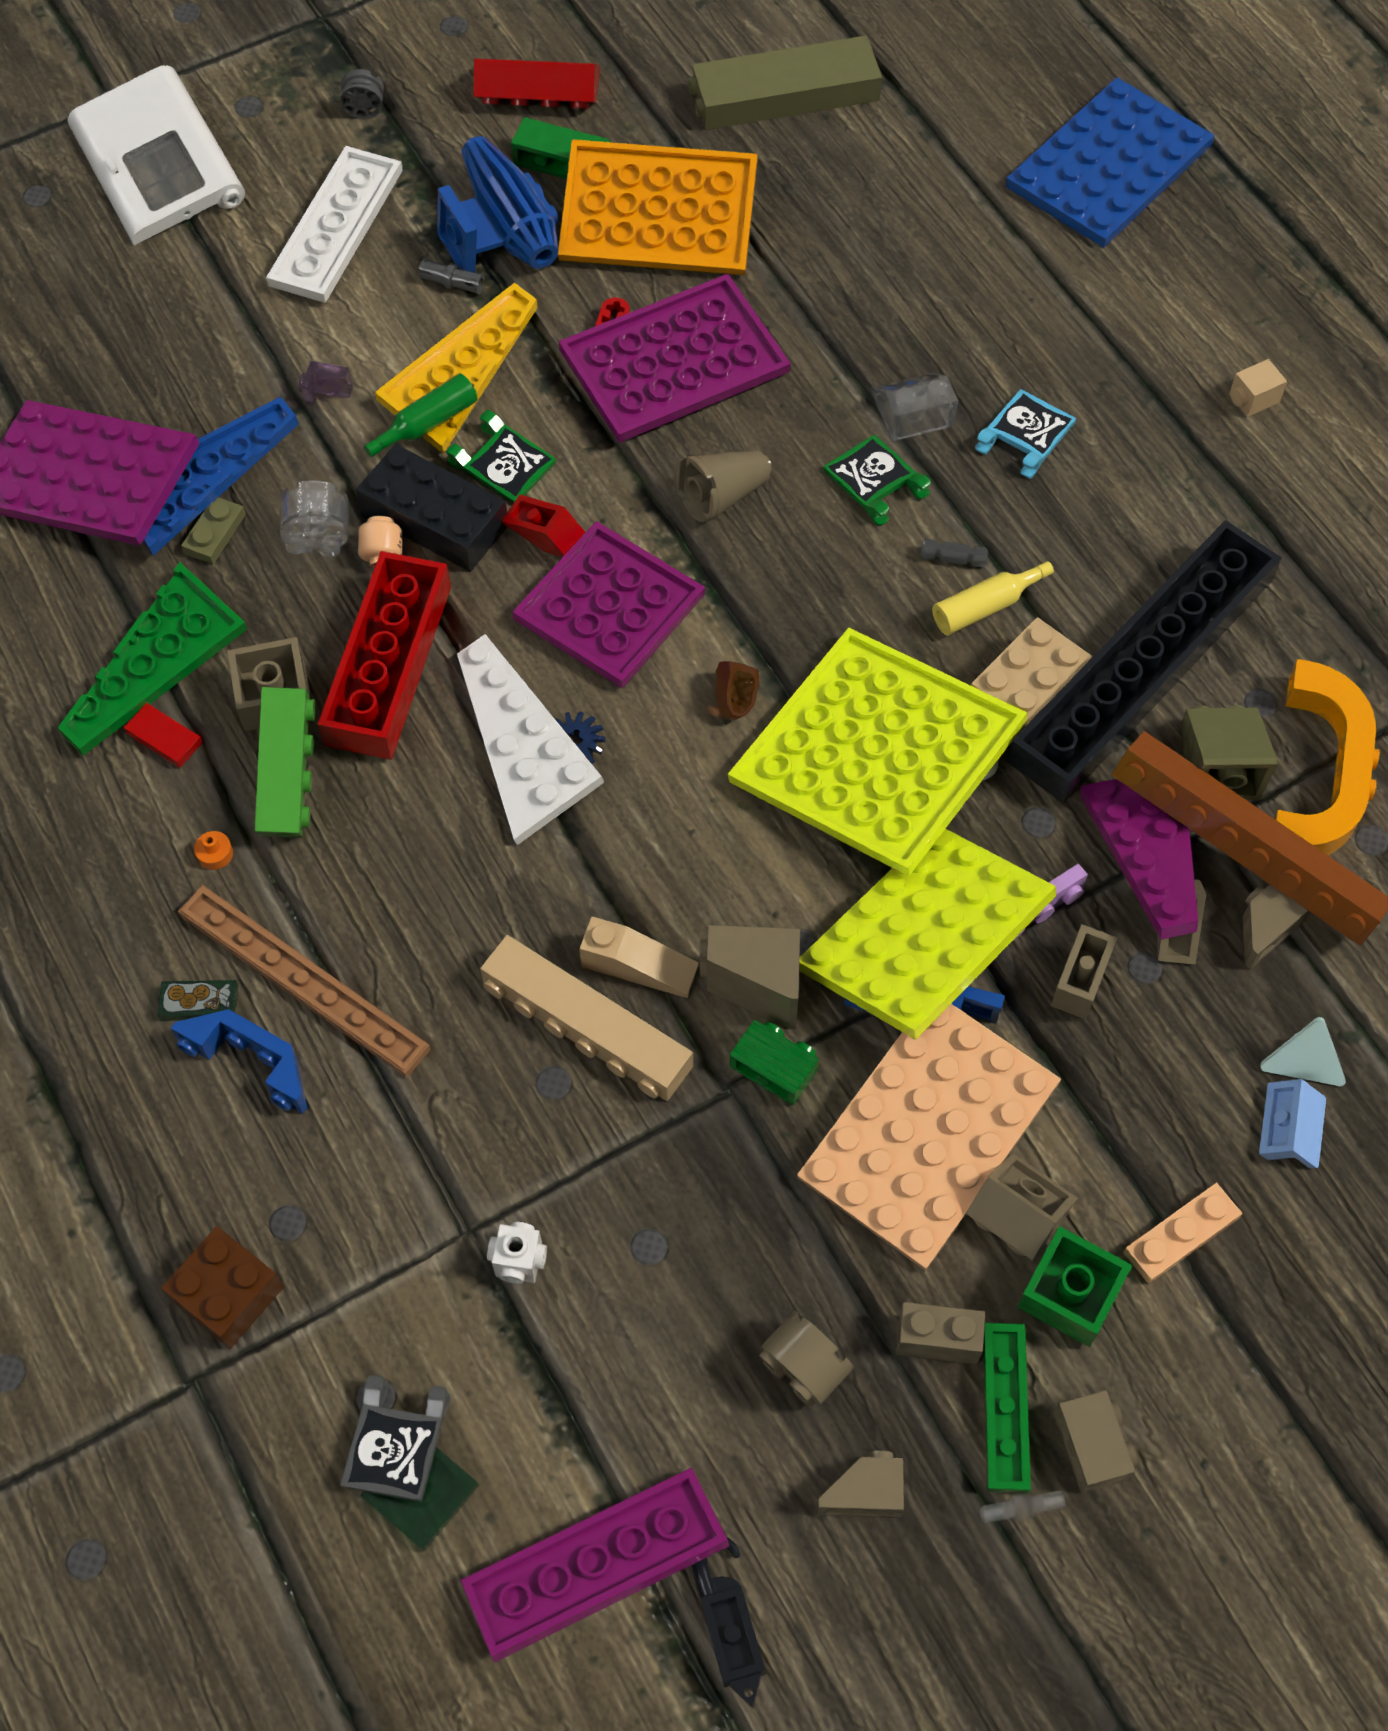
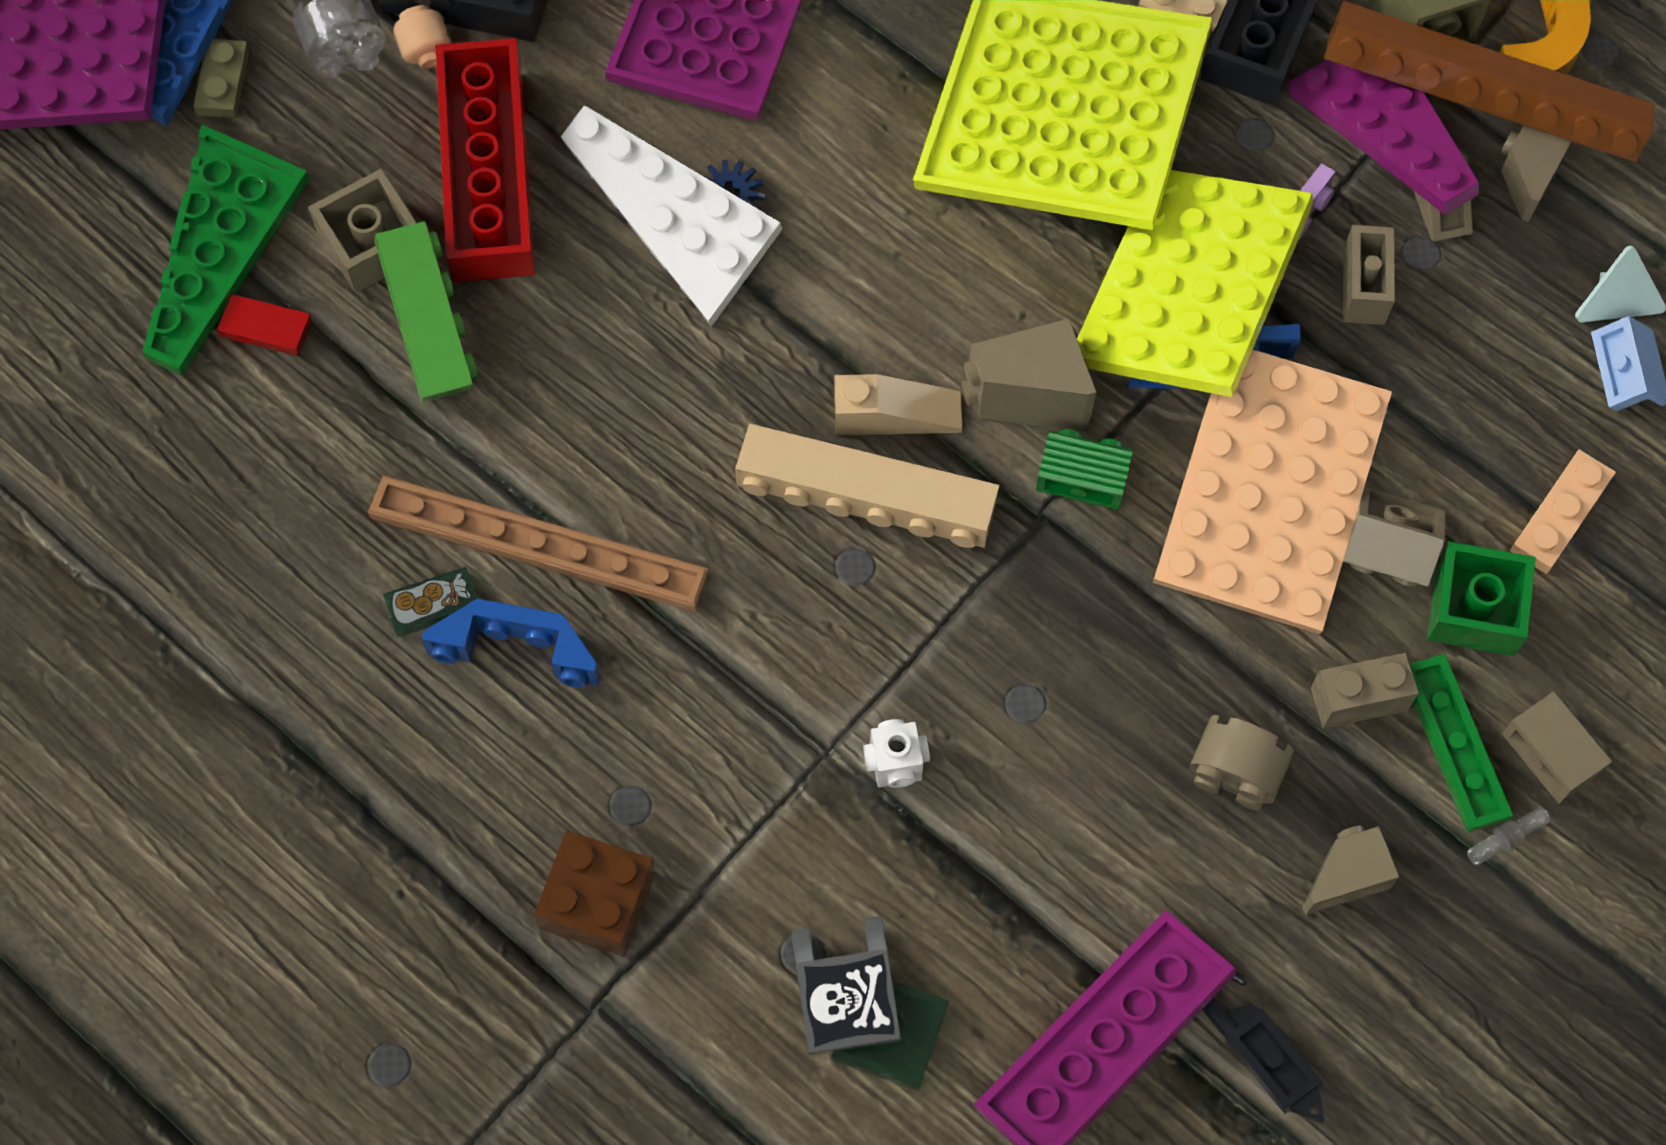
camera: 20 degrees left, 5 degrees up
(213, 850) = (377, 434): orange tile -> none
(736, 689) = (884, 85): rock -> none

